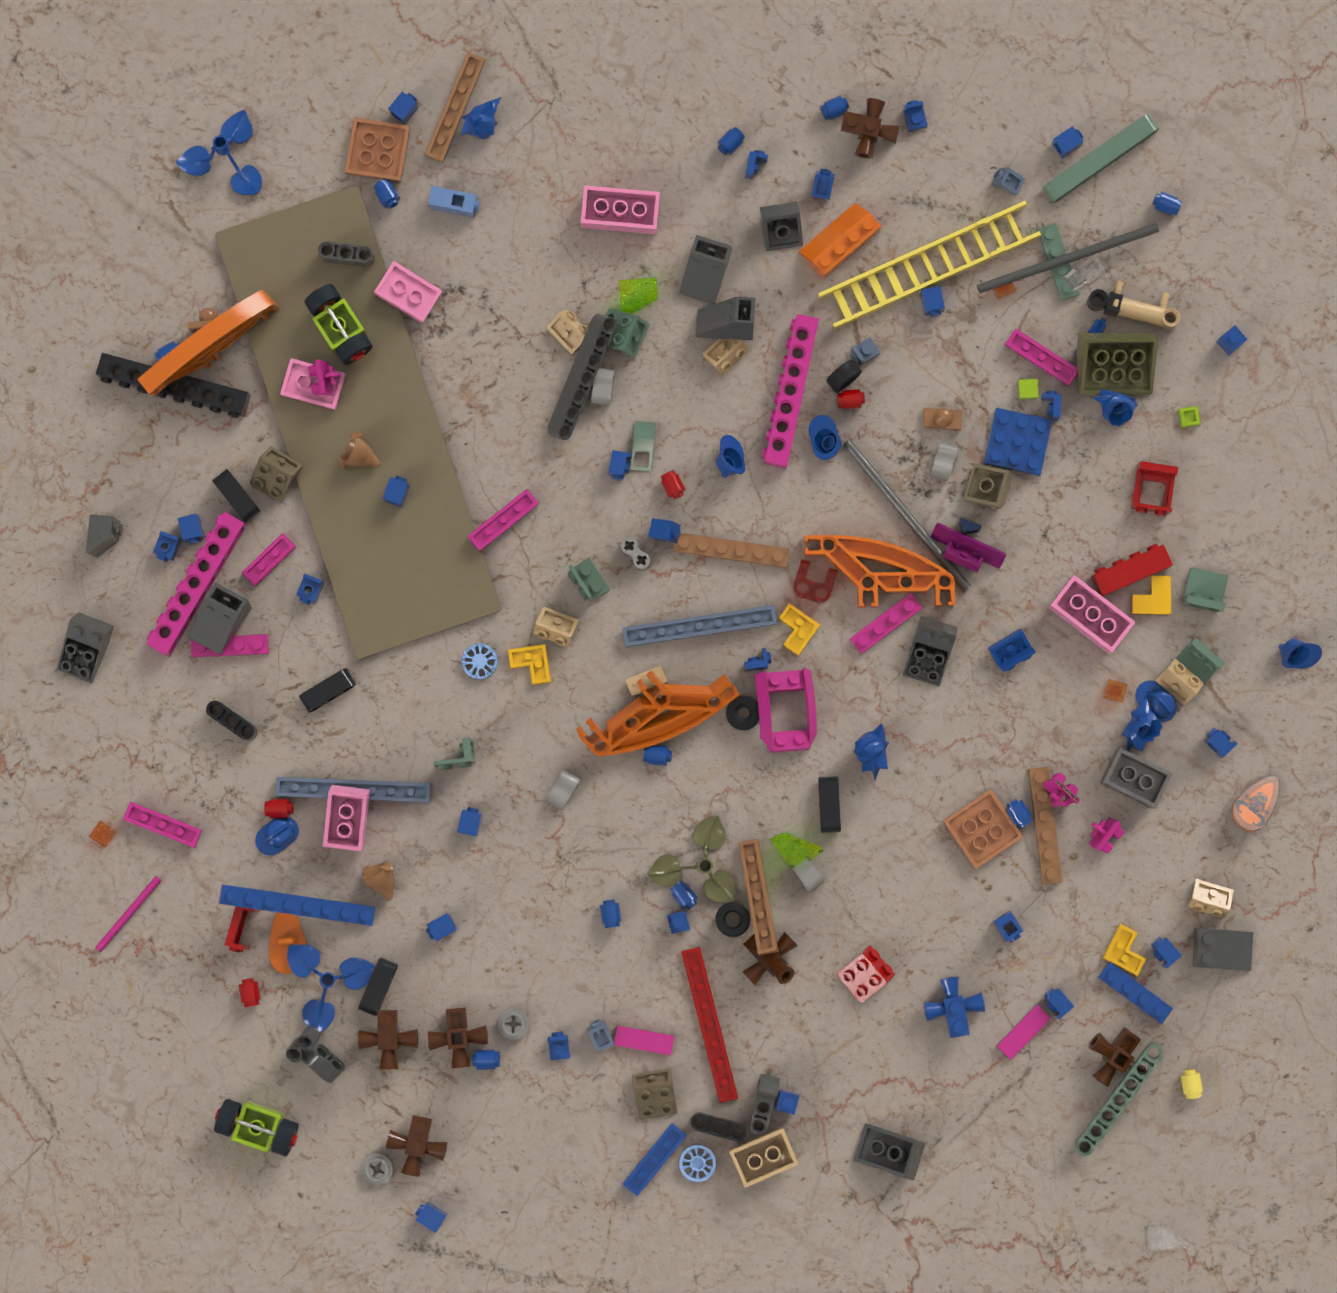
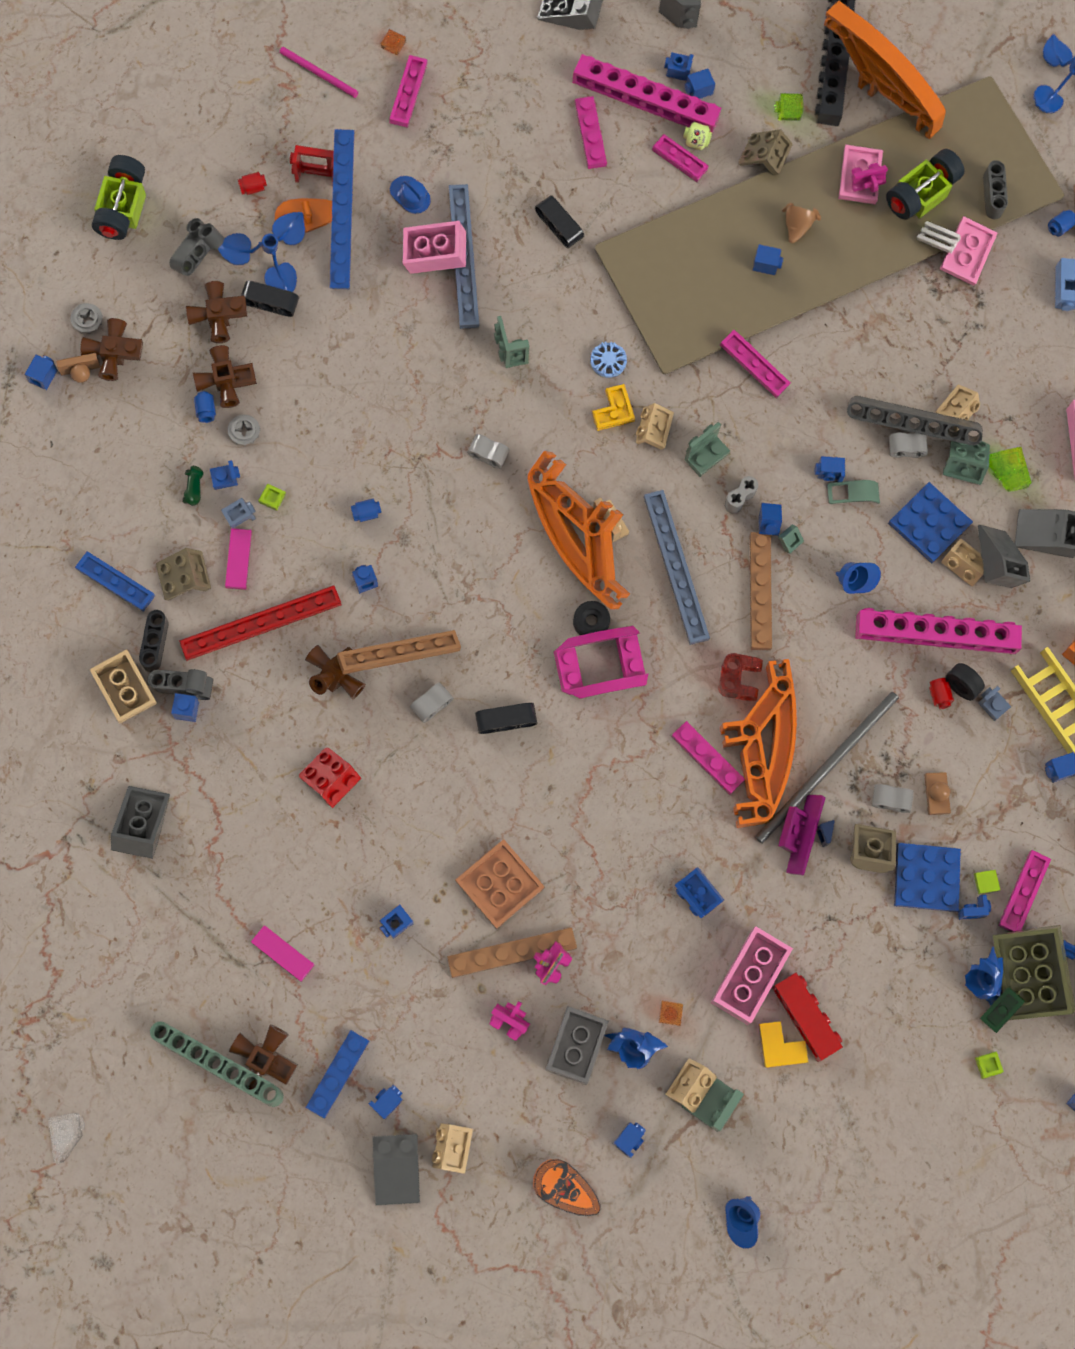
camera: 70 degrees right, 10 degrees down
(219, 618) = (616, 115): dark grey slope -> none
(223, 716) = (521, 132): black beam -> none
(227, 442) = (789, 106): none -> clear neon green brick
(236, 495) = (738, 120): black beam -> none
(250, 539) = (697, 136): none -> yellowish green head
(278, 808) = (436, 190): red brick -> none
(316, 586) = (656, 195): blue brick -> none
(380, 879) = (376, 288): medium nougat hat -> none
(382, 331) = (925, 231): none -> white tile
(431, 1179) = (78, 366): none -> medium nougat tile
(441, 927) = (335, 350): blue brick -> none
(470, 822) = (444, 365): blue brick -> none
(573, 1078) = (193, 493): none -> dark green piece
(584, 1002) = (272, 497): none -> lime tile
(657, 755) = (535, 538): blue brick -> none
(672, 485) = (819, 523): red brick -> none
(681, 378) = (930, 522): none -> blue plate
(684, 513) = (791, 538): none -> sand green plate
(684, 895) = (393, 580): blue brick -> none
(697, 1163) = (114, 625): light blue wheel -> none
(721, 885) = (406, 617): olive plant -> none
(744, 919) = (368, 620): black tyre -> none
(756, 664) = (645, 626): blue bracket -> none
(795, 849) = (454, 684): clear neon green slope -> none
(802, 626) = (689, 672): yellow tile -> none
(824, 437) = (895, 669): blue piece -> none
(872, 750) = (569, 755): blue hair -> none
(930, 651) = (685, 806): dark grey slope -> none
(954, 1007) = (301, 872): blue brick -> none
(1019, 813) = (521, 920): blue brick -> none
(1058, 1002) = (318, 986): blue brick -> none
(1119, 952) = (380, 1051): yellow tile -> none
(1144, 397) = (1002, 1009): none -> dark green plate
(1156, 473) = (920, 1032): red window -> none
(1159, 700) = (666, 1063): blue piece -> none
(1191, 1084) = (240, 1148): light yellow brick -> none
(1205, 590) = (798, 1103): sand green bracket -> none

